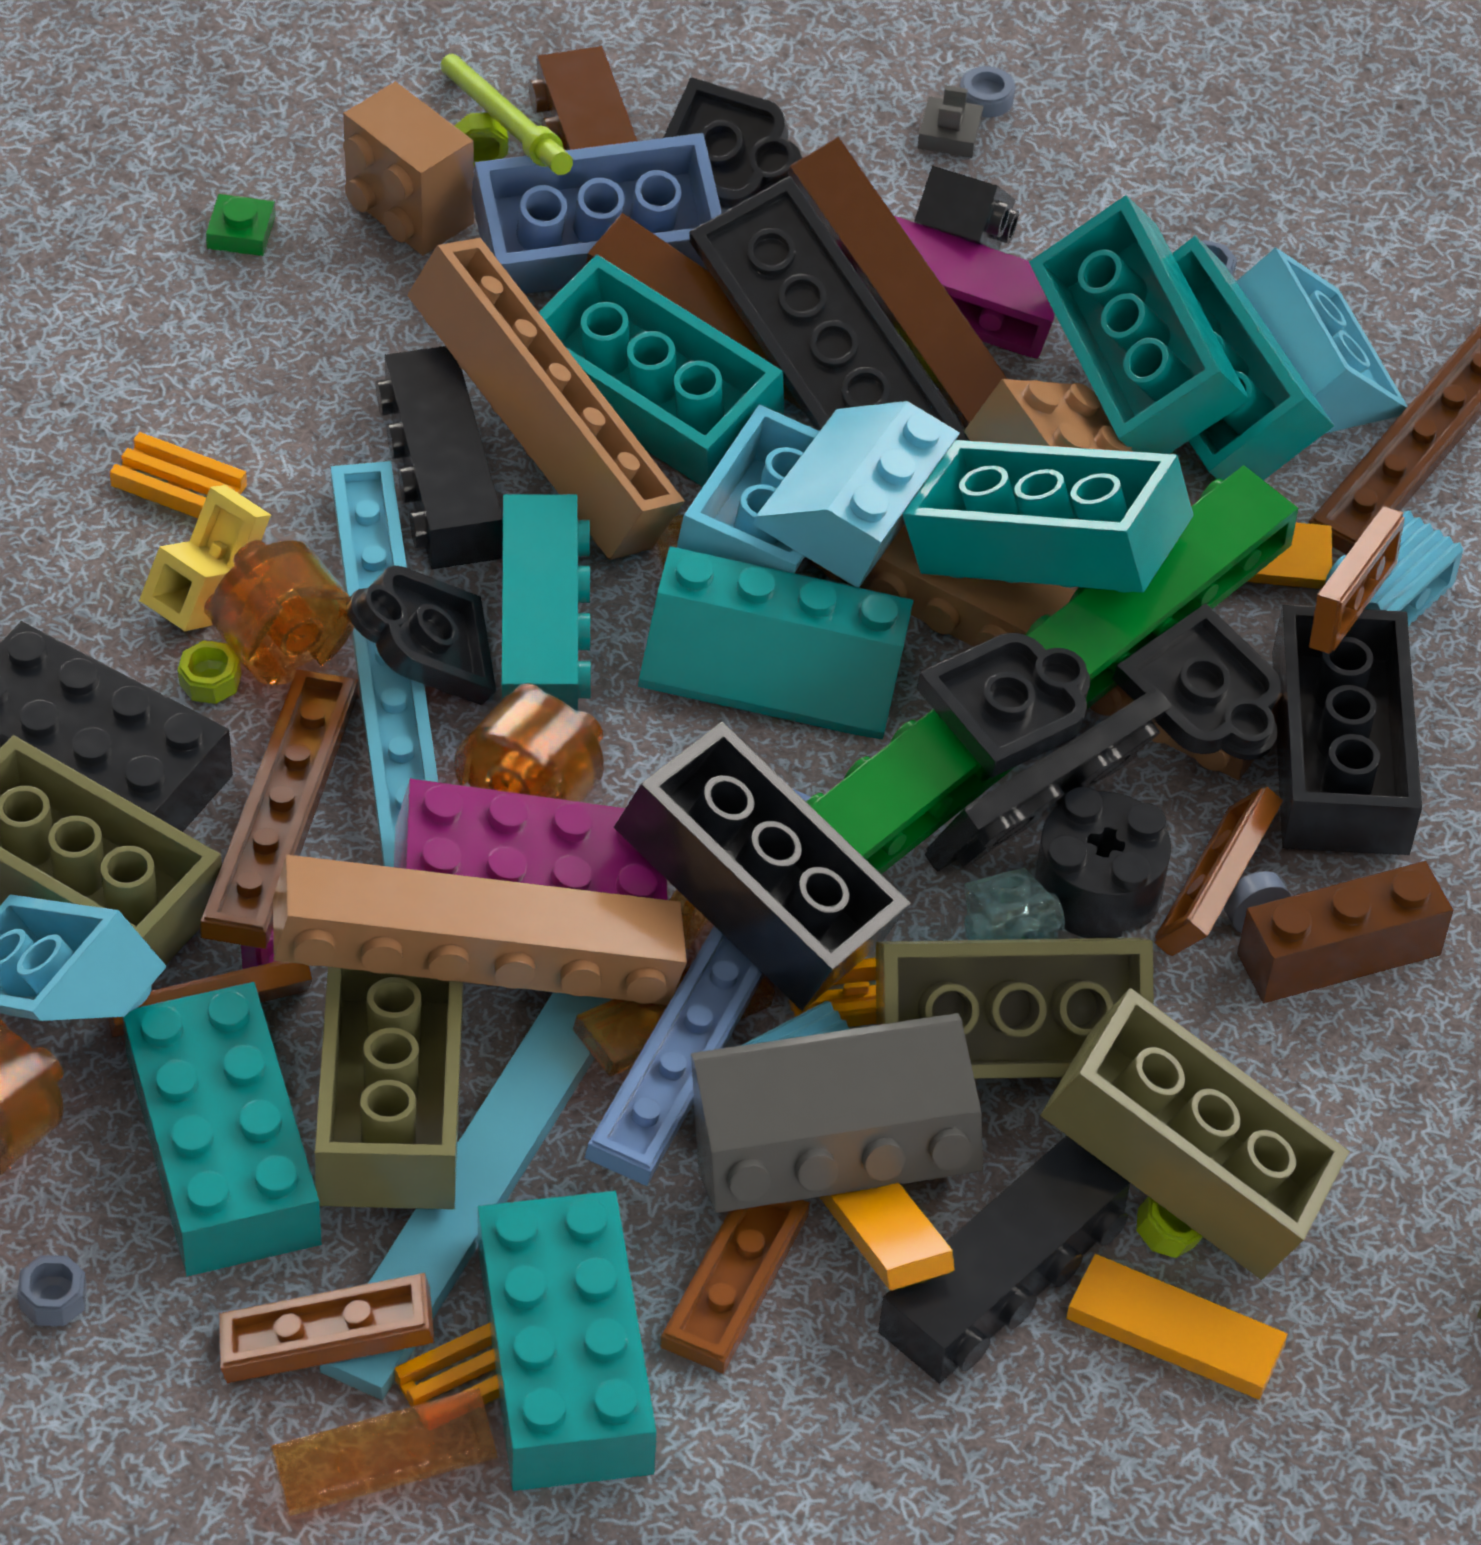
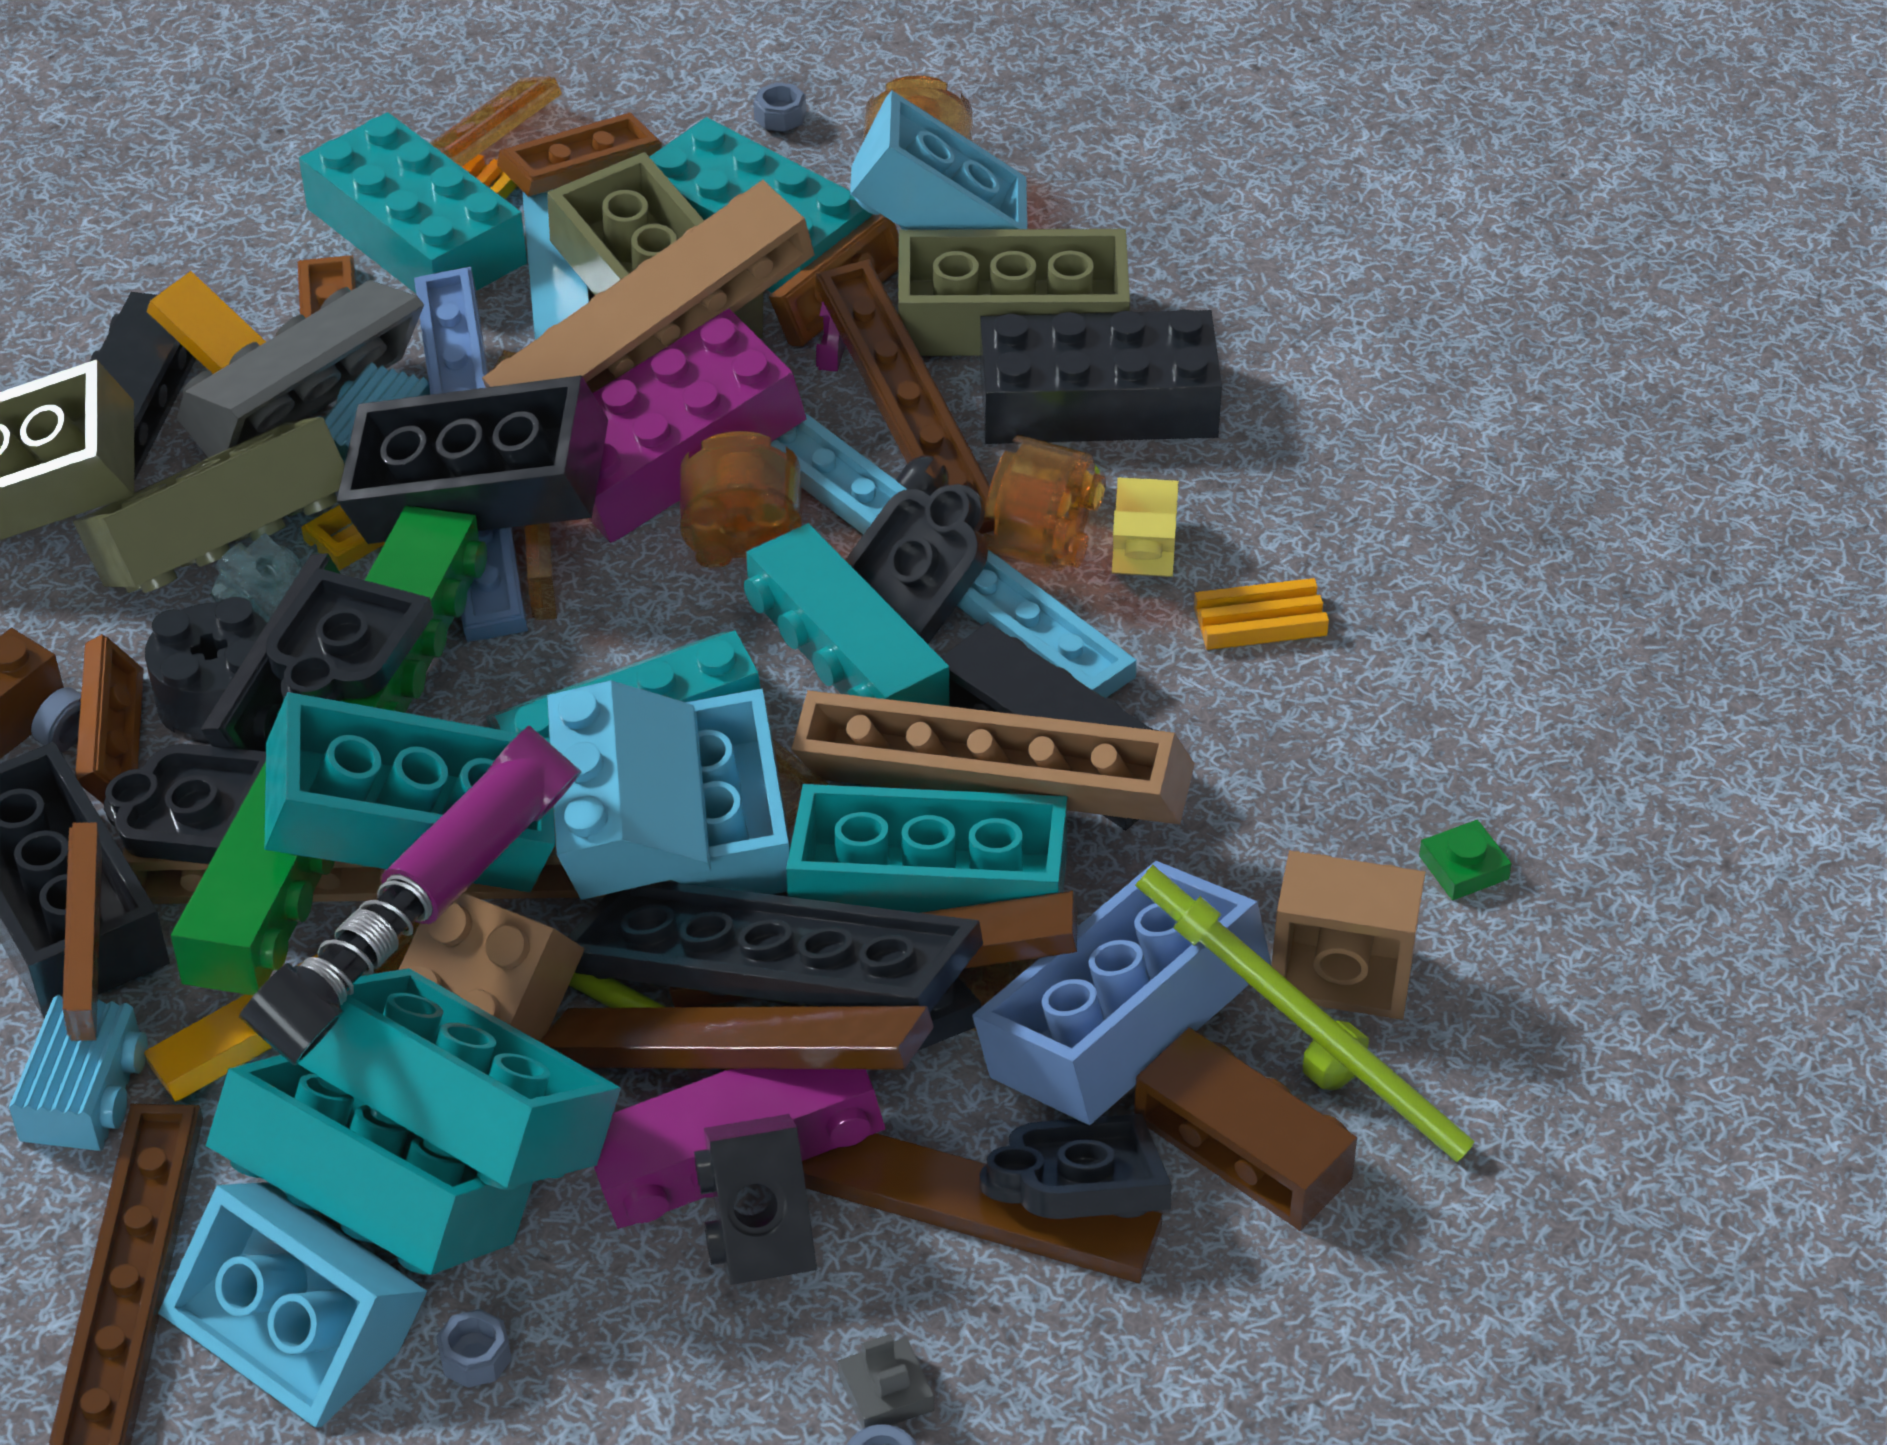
camera: 150 degrees right, 5 degrees down
(356, 695) = (915, 475): none -> black hinge
(1100, 384) = (305, 1000): none -> piece

